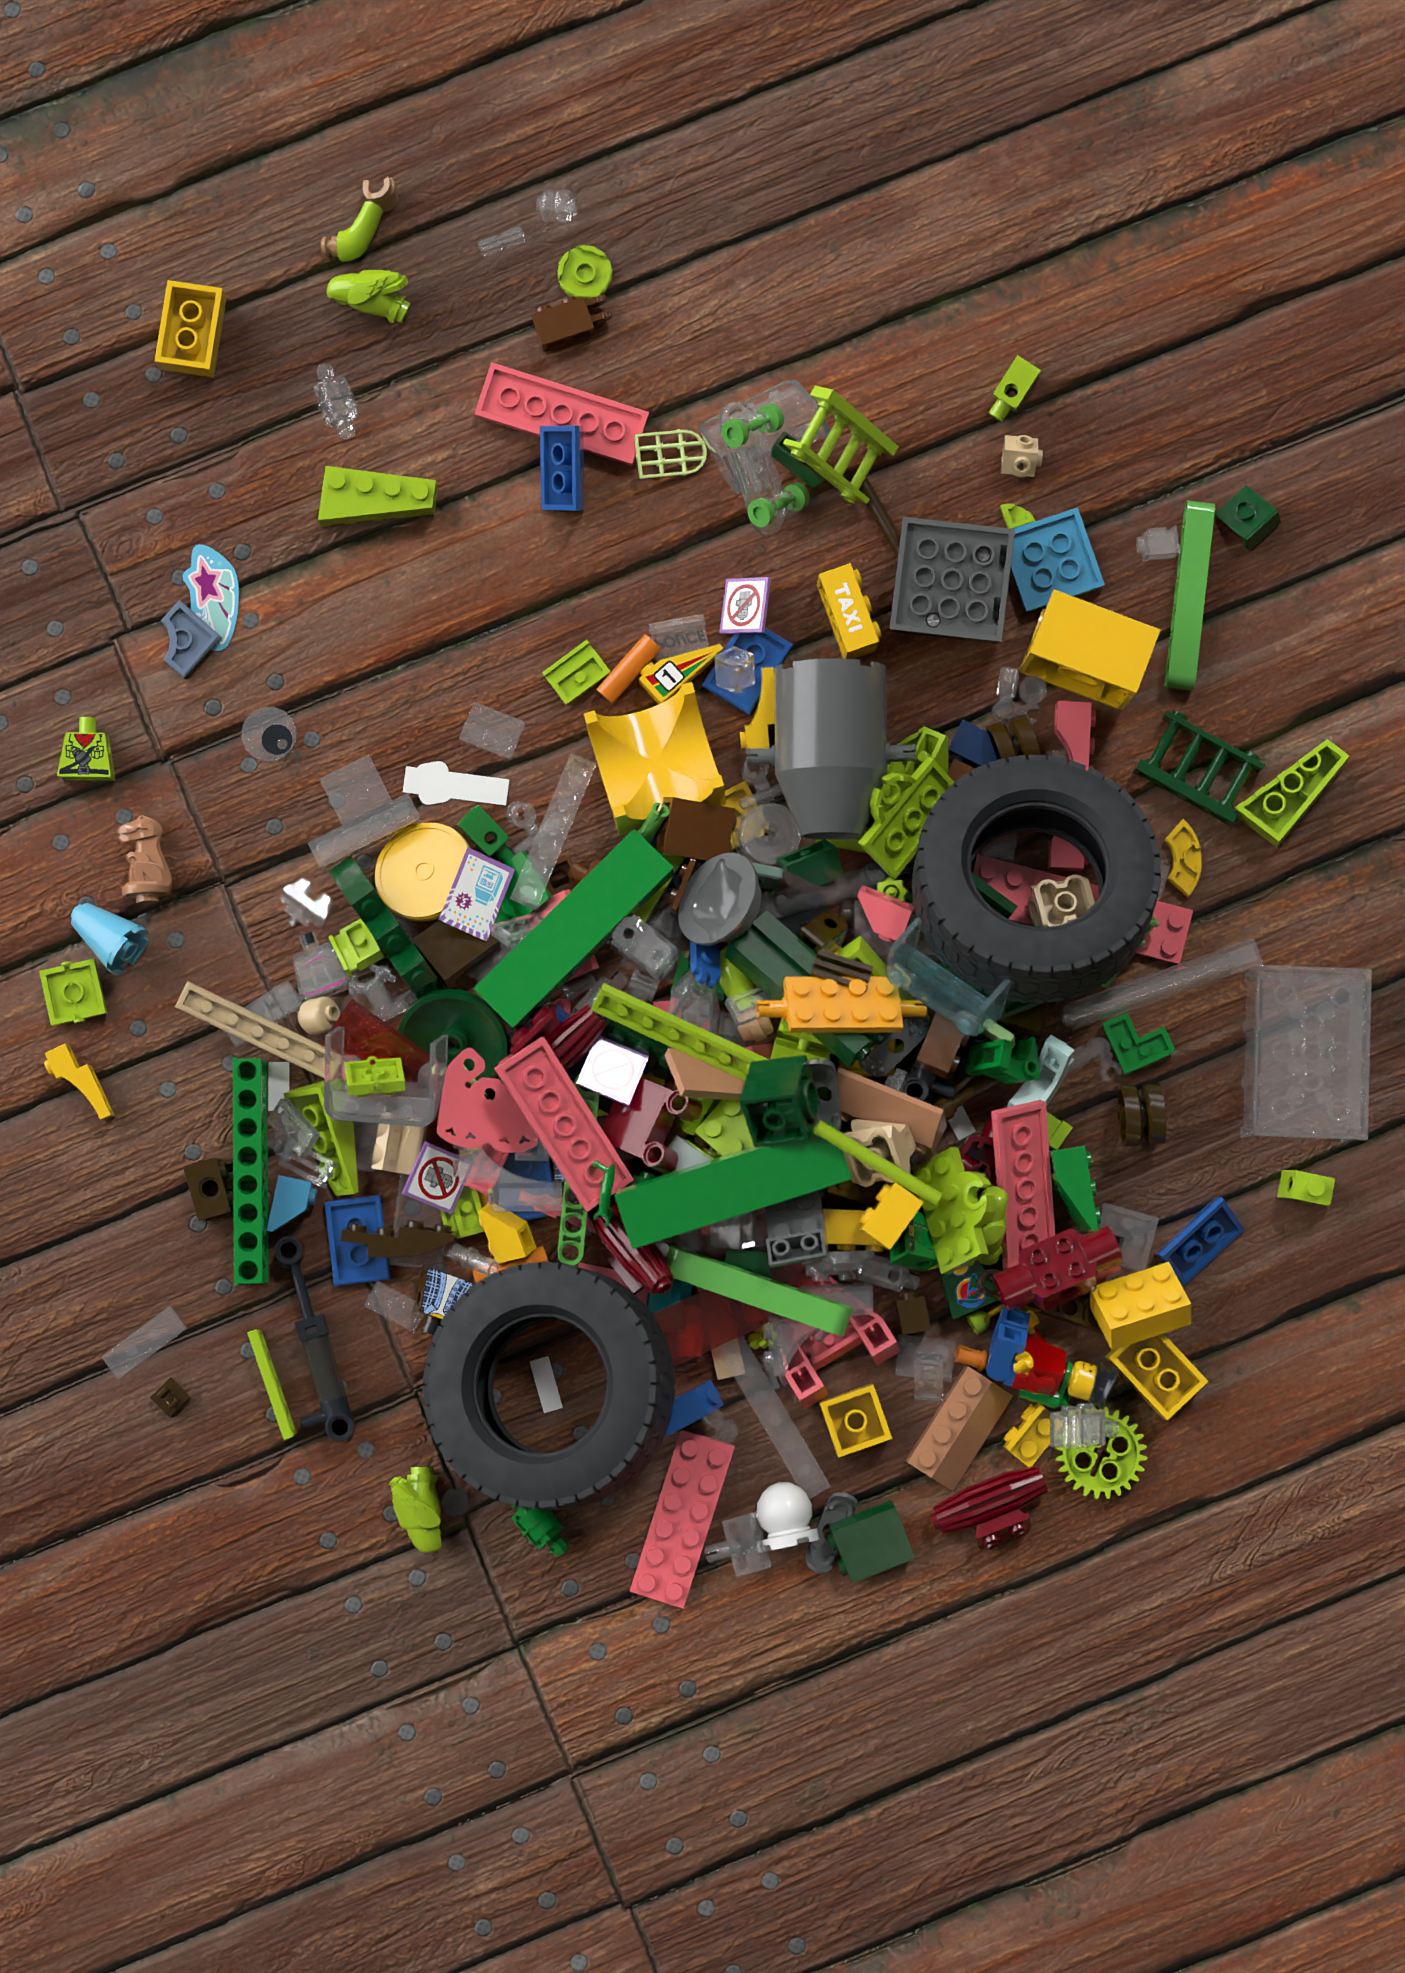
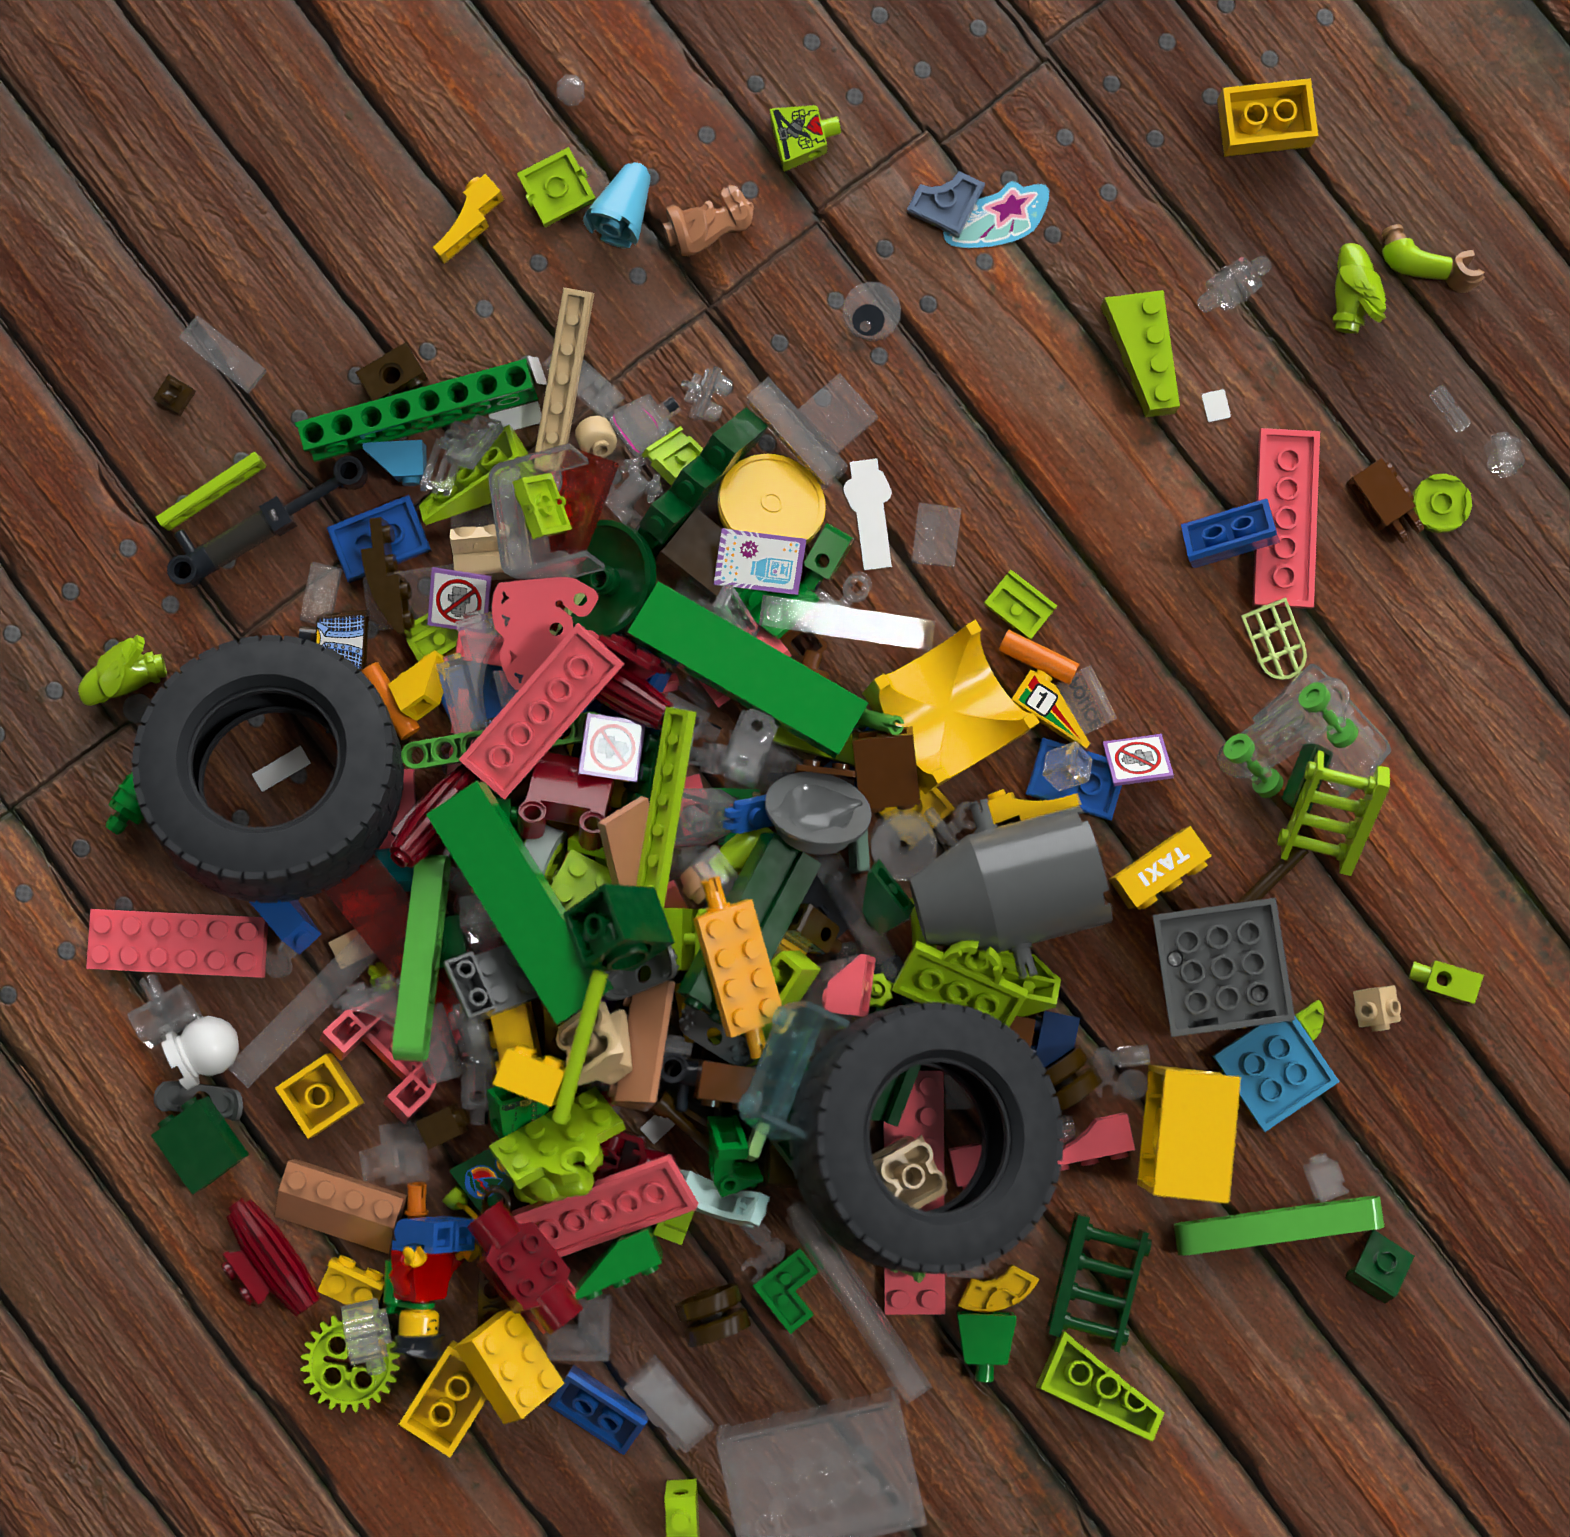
camera: 85 degrees right, 0 degrees up
(240, 1054) = (537, 370): none -> white sticker
(440, 448) = (1216, 405): none -> white sticker
(470, 1258) = (386, 657): clear pin -> none
(605, 1192) = (495, 772): green piece -> none
(840, 966) = (783, 964): dark brown tile -> none
(1210, 1176) = (668, 1405): none -> clear wedge
(1224, 880) = (986, 1340): none -> green torso

